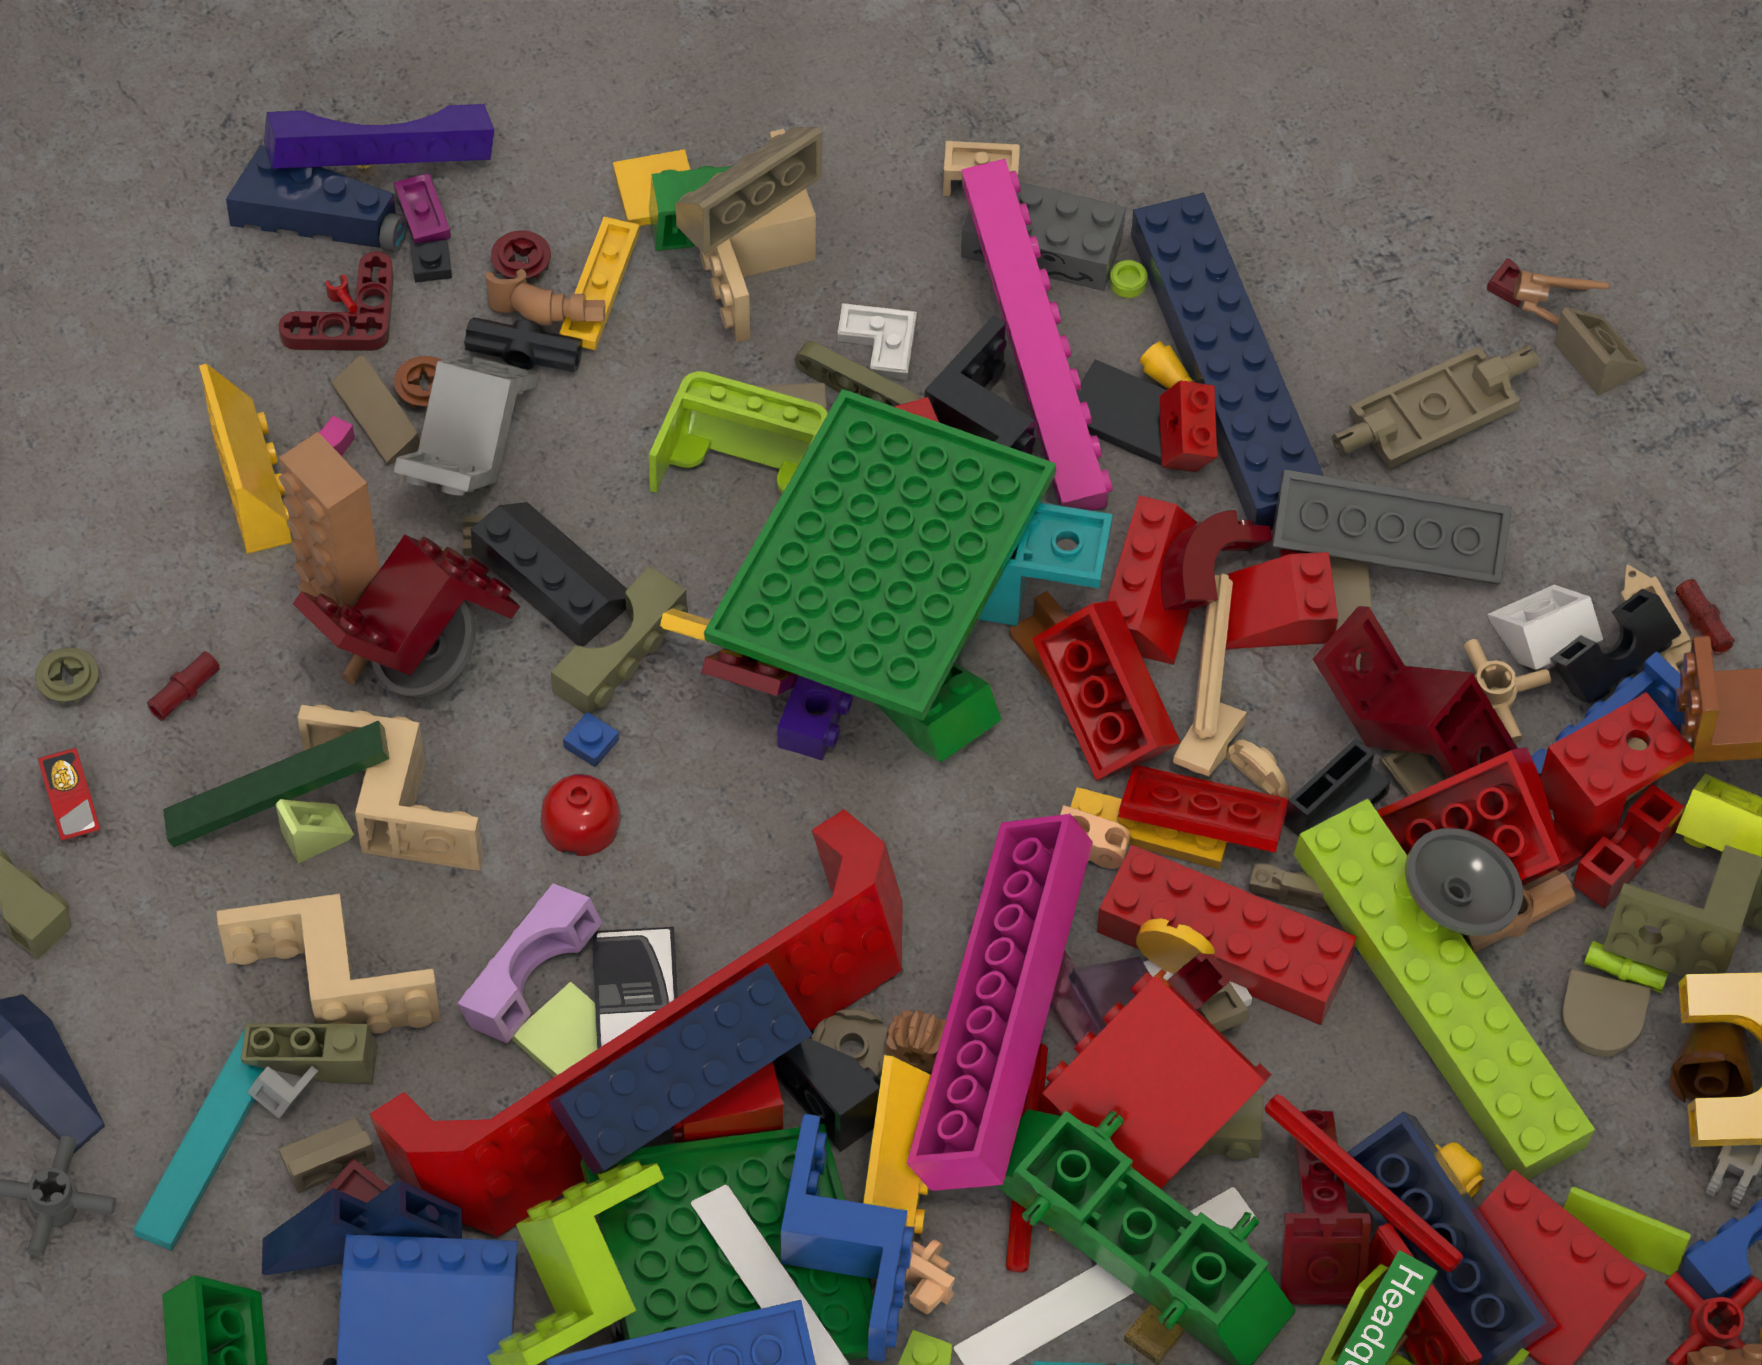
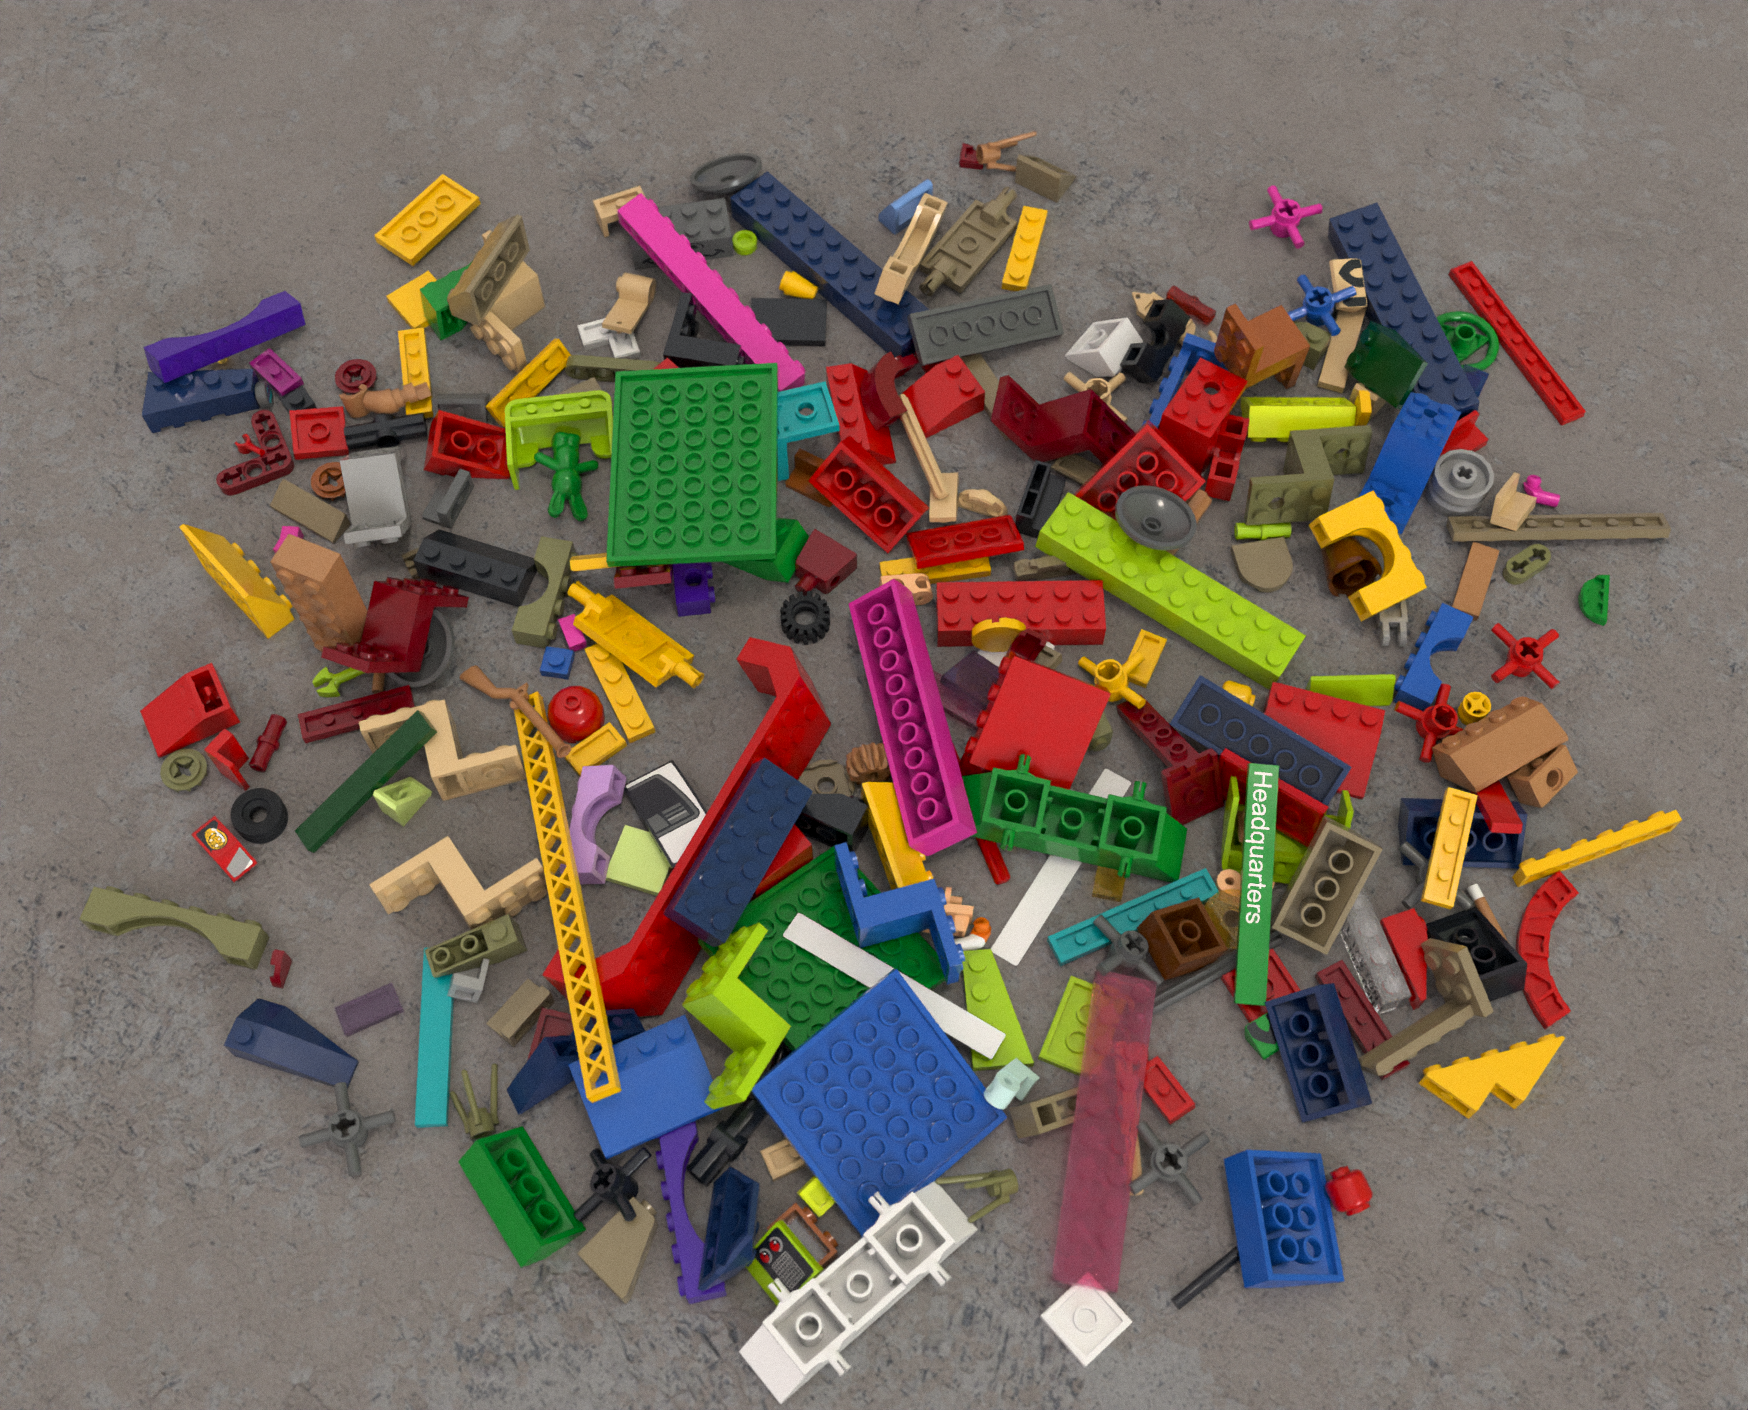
camera: 25 degrees left, 5 degrees up
(68, 969) = (282, 966): none -> dark red tile
(108, 604) = (189, 711): none -> red slope
(124, 751) = (256, 800): none -> black tyre
(126, 681) = (228, 757): none -> red panel
(147, 1068) = (369, 1009): none -> clear purple tile
(212, 1259) = (480, 1122): none -> olive plant
(287, 691) = (346, 715): none -> dark red plate
(302, 642) = (334, 681): none -> lime bar
(437, 311) = (318, 433): none -> red plate
(440, 1015) = (561, 910): none -> yellow piece
(480, 718) = (476, 678): none -> medium nougat piece
(560, 468) = (449, 499): none -> dark grey panel
(584, 869) = (596, 748): none -> yellow tile
(611, 408) = (466, 445): none -> red slope
(629, 709) = (572, 635): none -> dark pink piece
(633, 354) = (465, 405): none -> dark grey panel
(651, 809) = (620, 693): none -> yellow plate
(700, 748) = (633, 638): none -> yellow plate
(718, 78) = (427, 219): none -> yellow plate
(722, 505) = (566, 480): none -> green animal
(746, 351) = (530, 379): none -> yellow tile
(939, 295) = (634, 299): none -> tan door
(939, 798) = (800, 604): none -> black tyre
(943, 1323) = (977, 936): none -> arm
(999, 758) = (823, 564): none -> dark red torso
(1148, 173) = (726, 174): none -> dark grey dish
(1188, 426) = (831, 314): red brick -> none
(1302, 1076) = (1114, 677): none -> yellow bar
(1308, 402) = (905, 261): none -> tan arch
(1364, 1067) = (1151, 647): none -> yellow tile
(1364, 1183) = (1196, 730): red axle -> none
(1377, 320) = (900, 212): none -> medium blue tile
(1513, 443) = (1024, 249): none -> yellow plate

